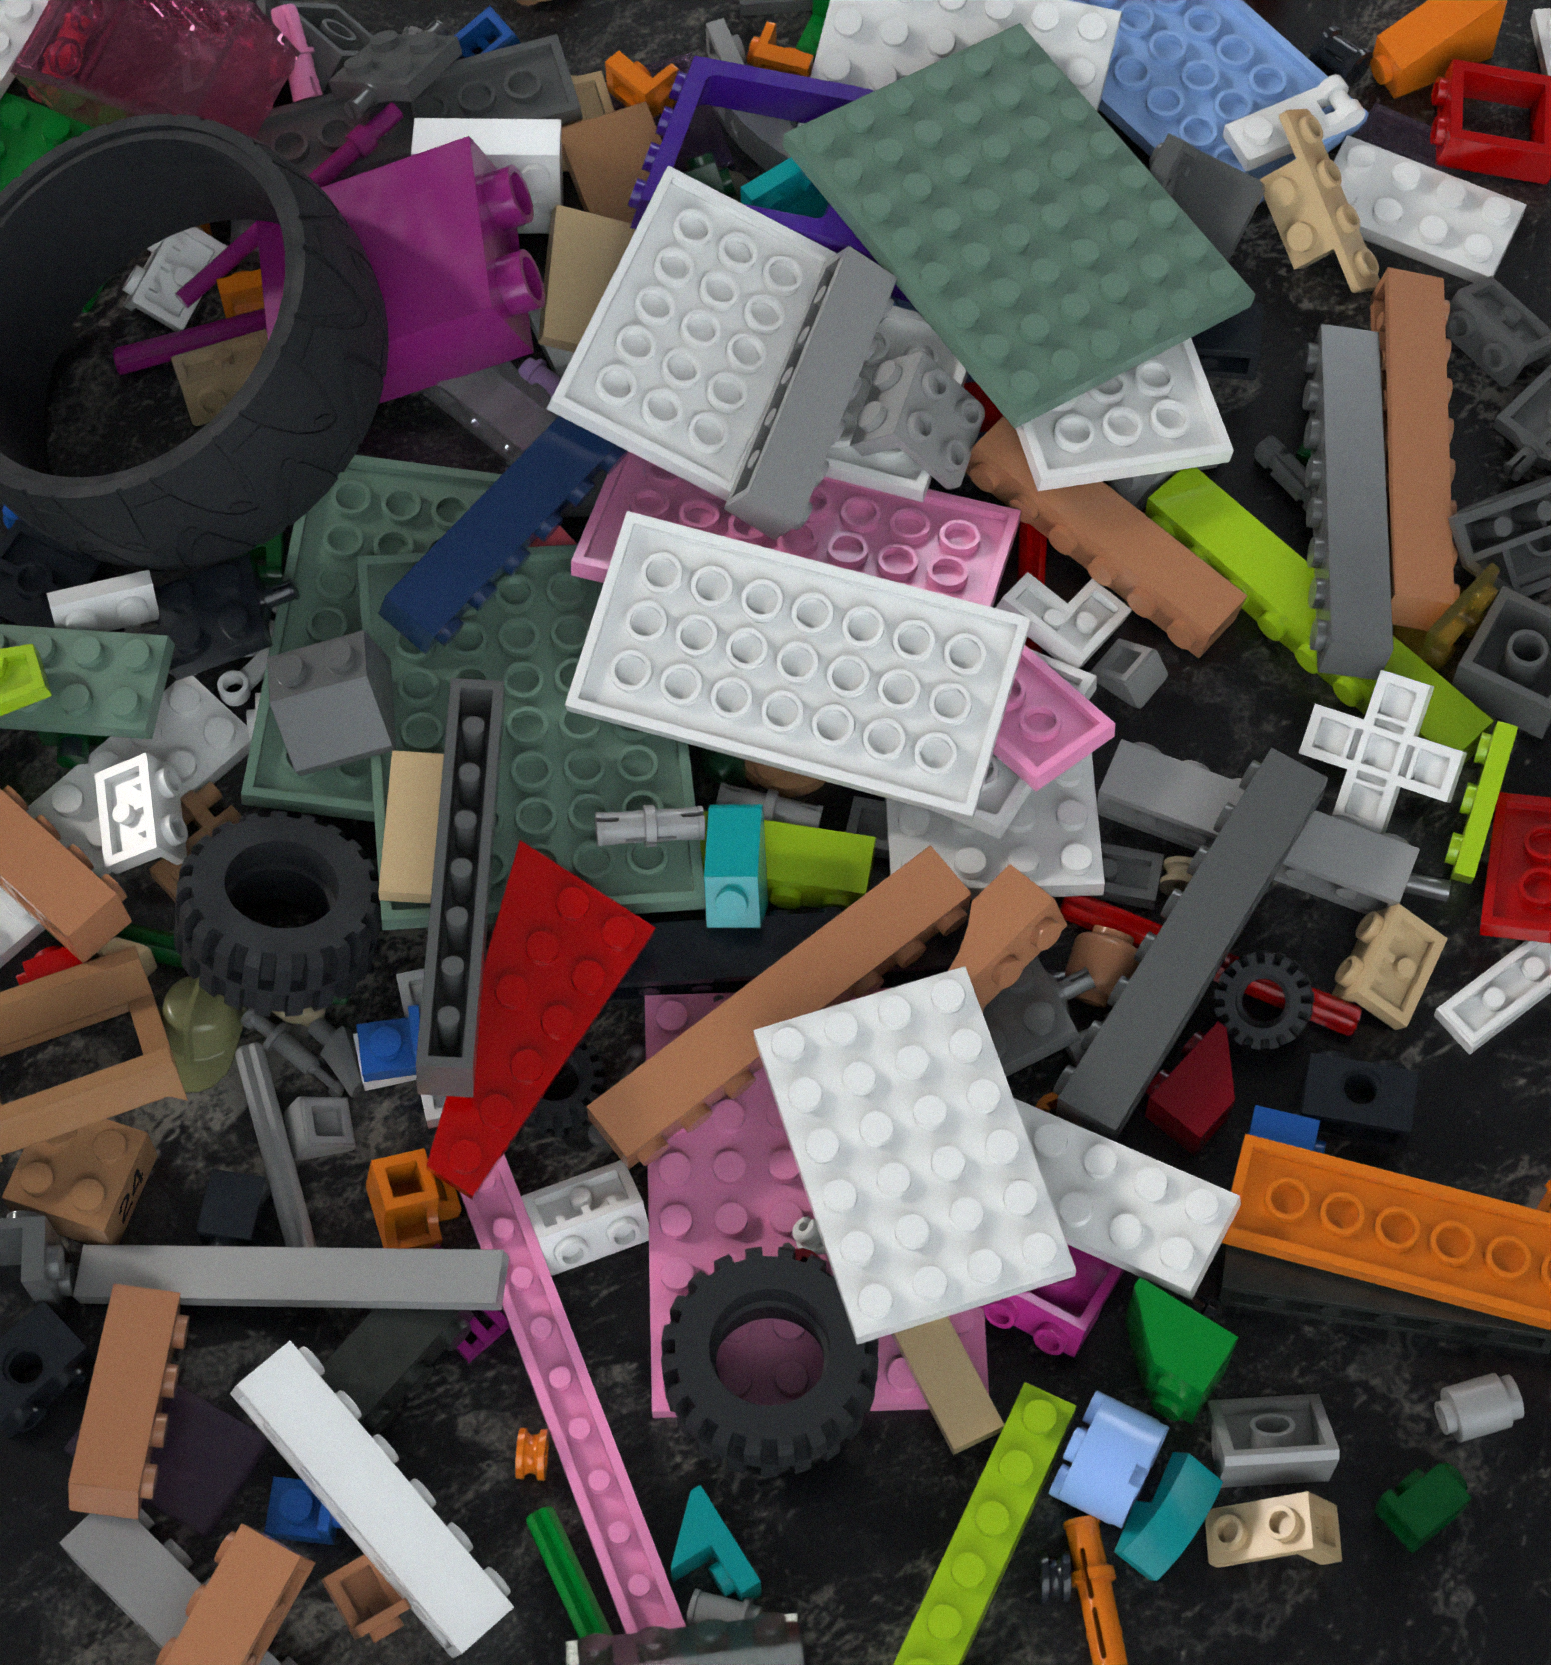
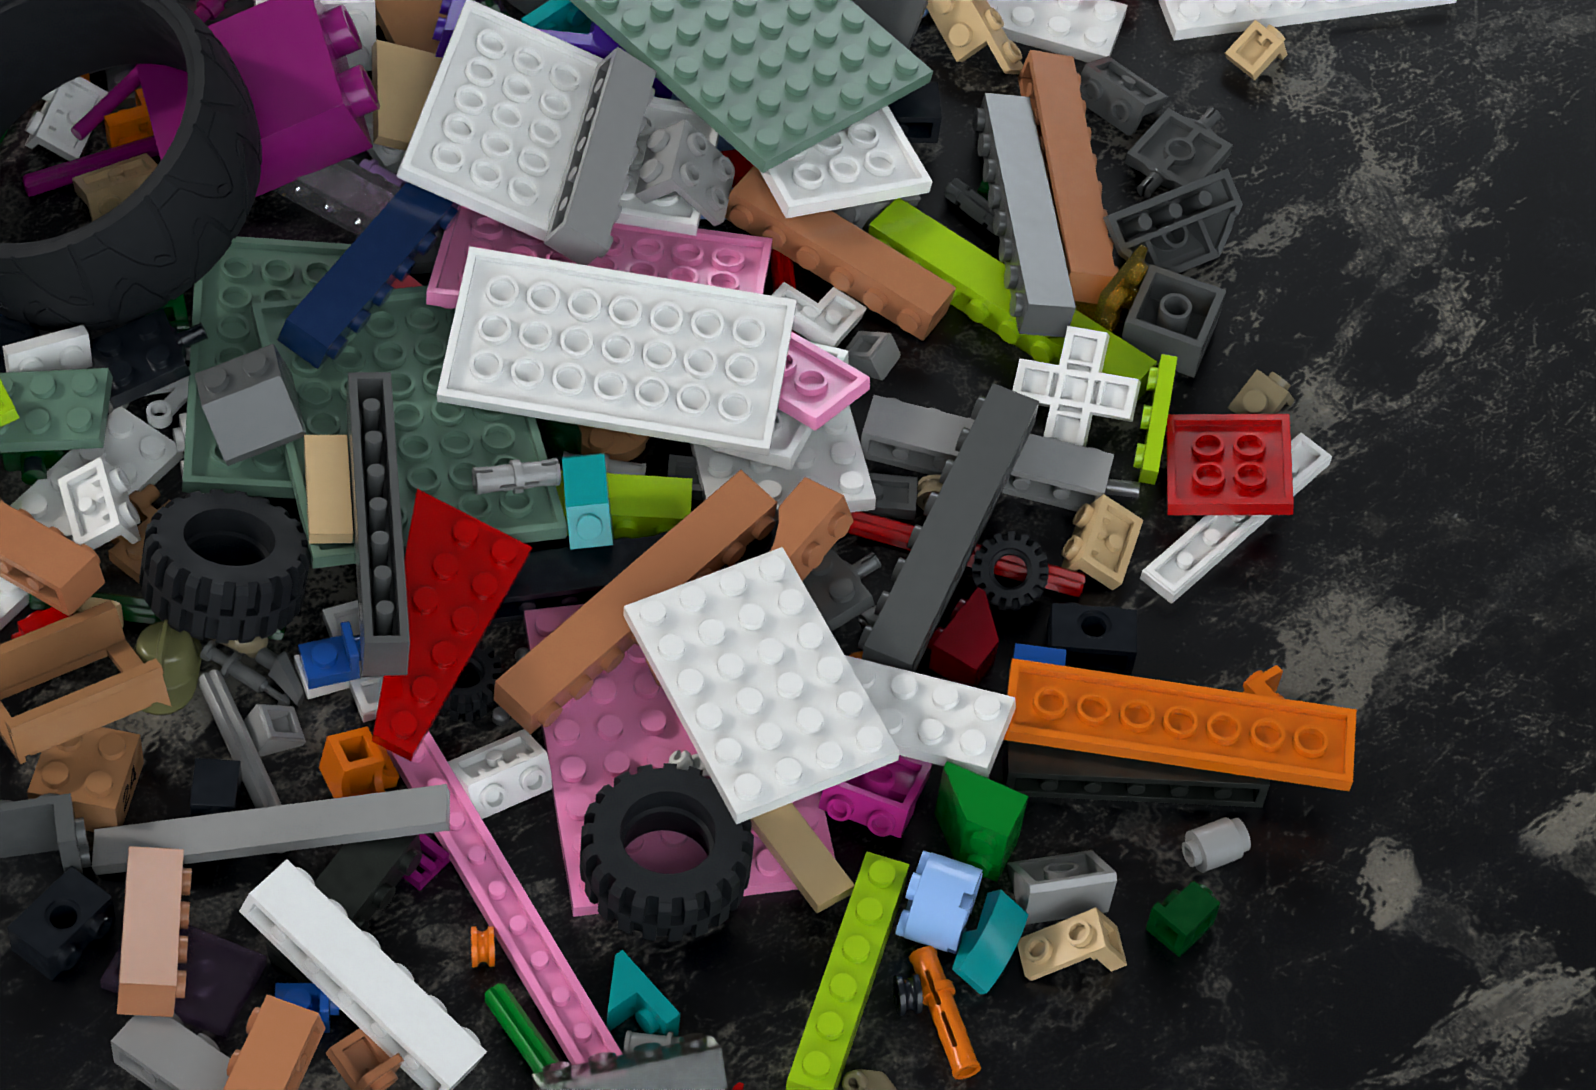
camera: 15 degrees left, 10 degrees down
(1107, 957) = (888, 547): nougat head -> none

